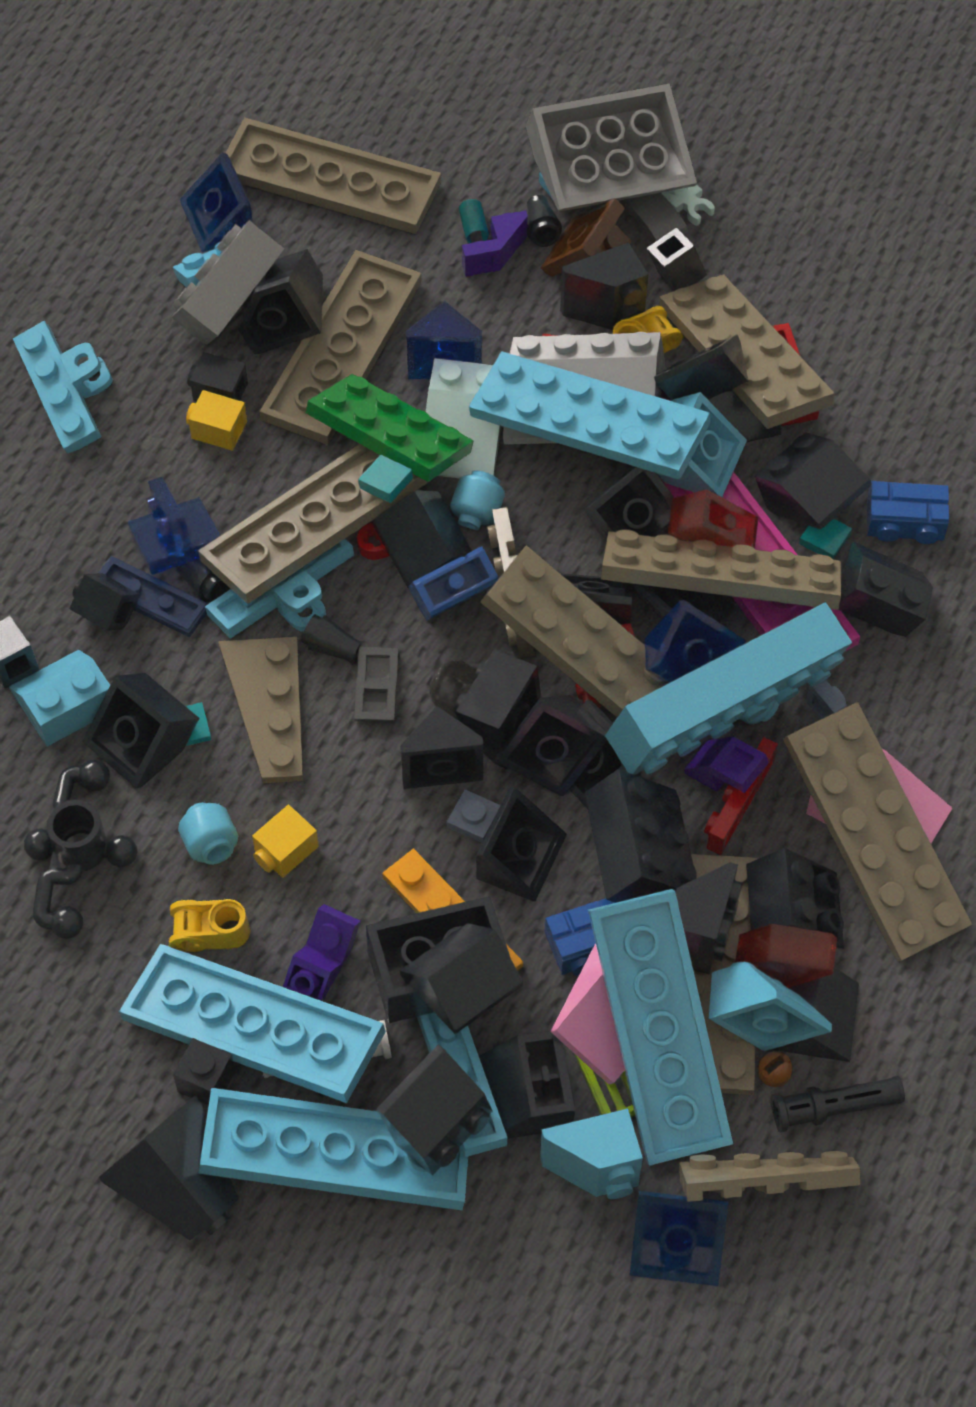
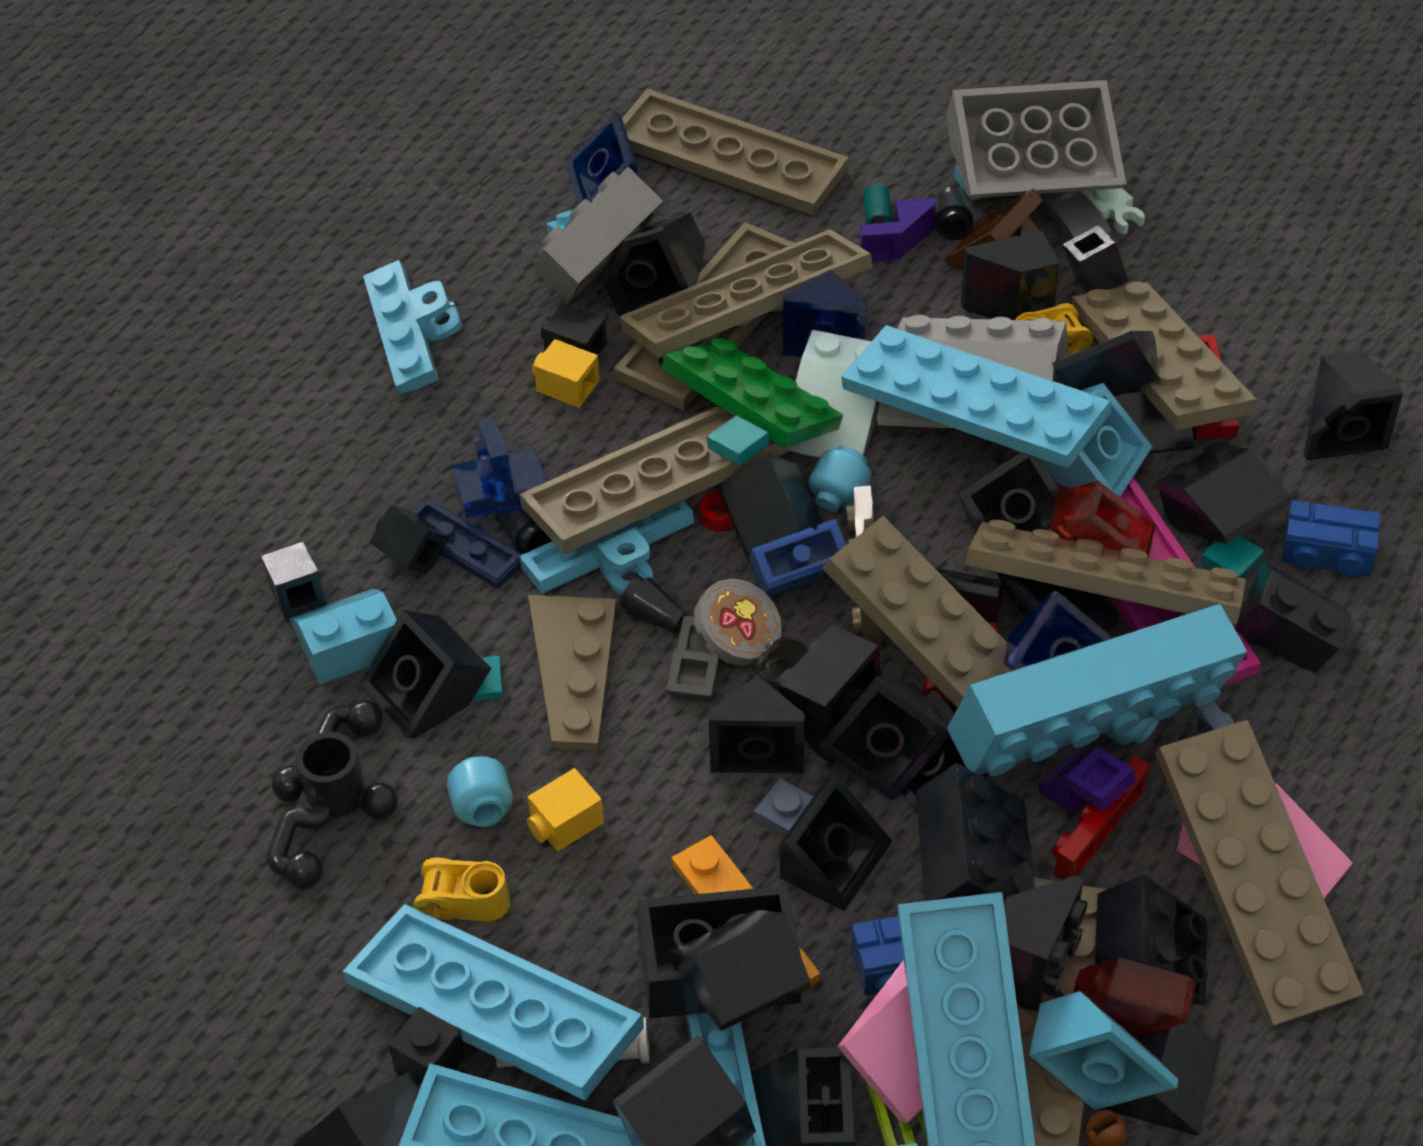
camera: 10 degrees right, 10 degrees down
(326, 950) = (593, 935): dark purple slope -> none
(366, 327) = (741, 293): none -> dark tan plate
(407, 648) = (737, 620): none -> tile
(913, 382) = (1351, 407): none -> black slope

